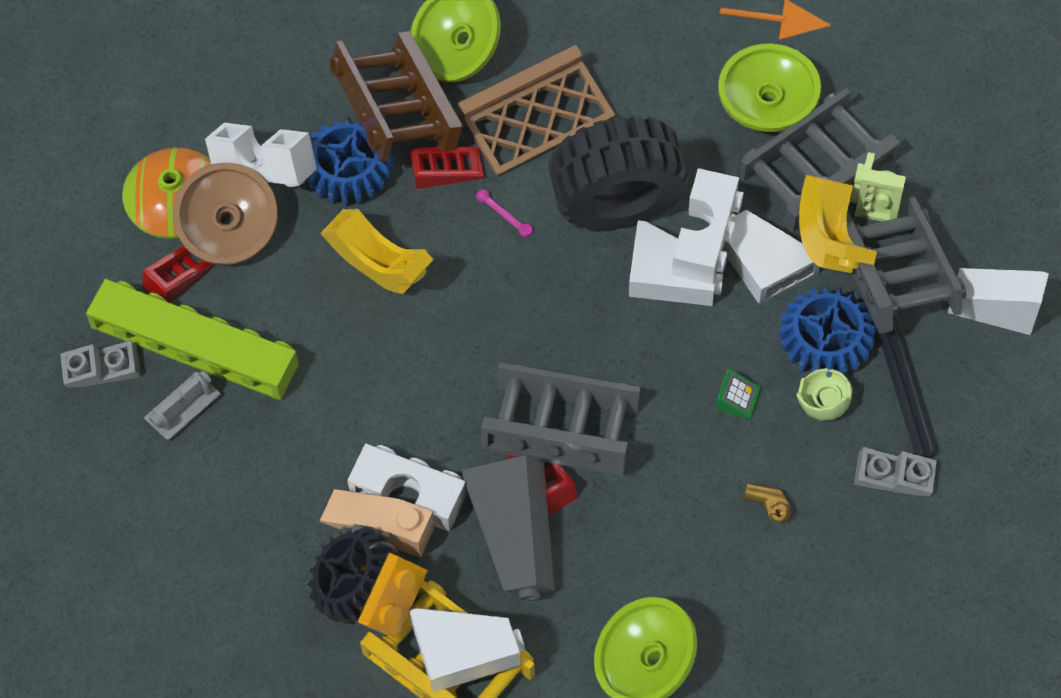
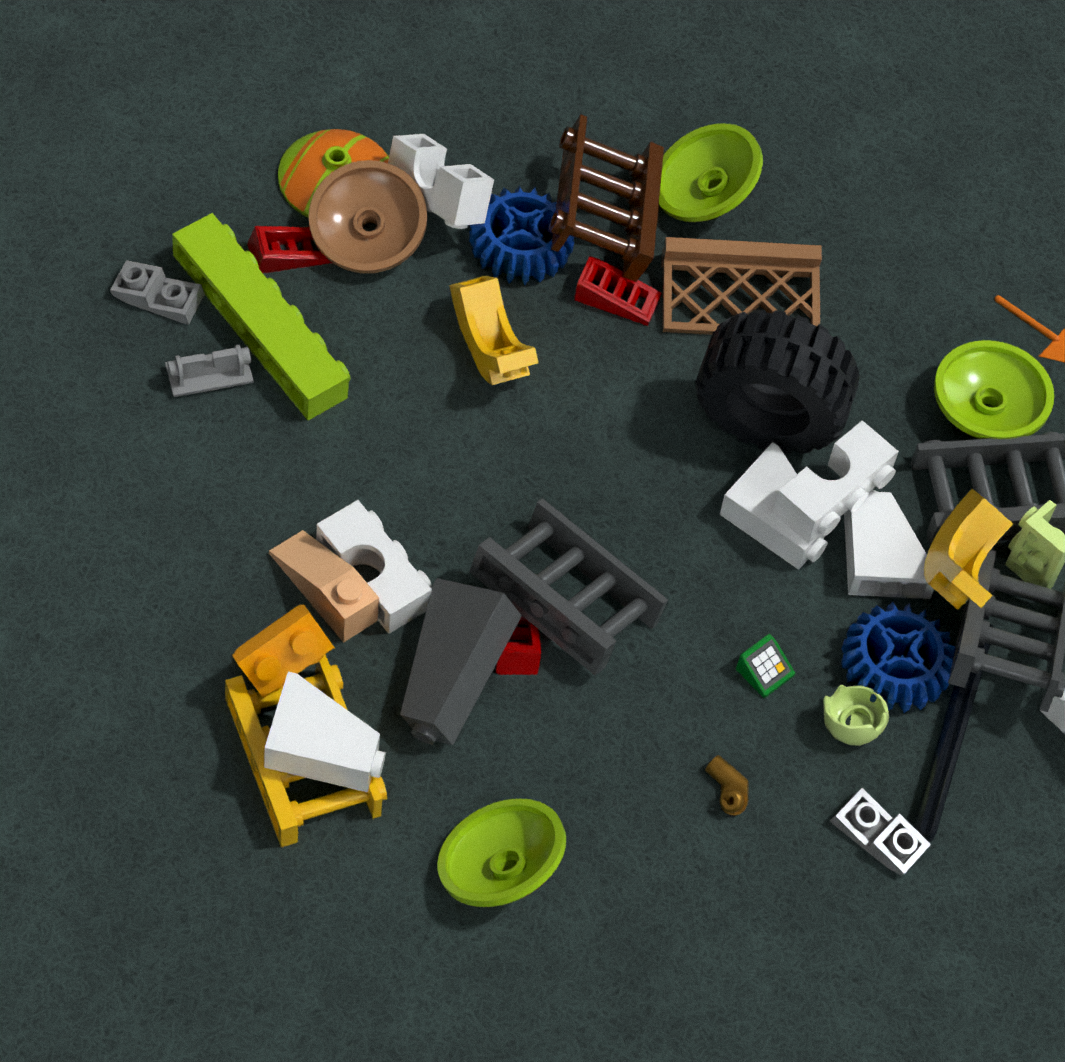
camera: 20 degrees right, 5 degrees down
(334, 587) = (257, 605): black gear -> none
(525, 230) = (656, 395): dark pink hinge -> none

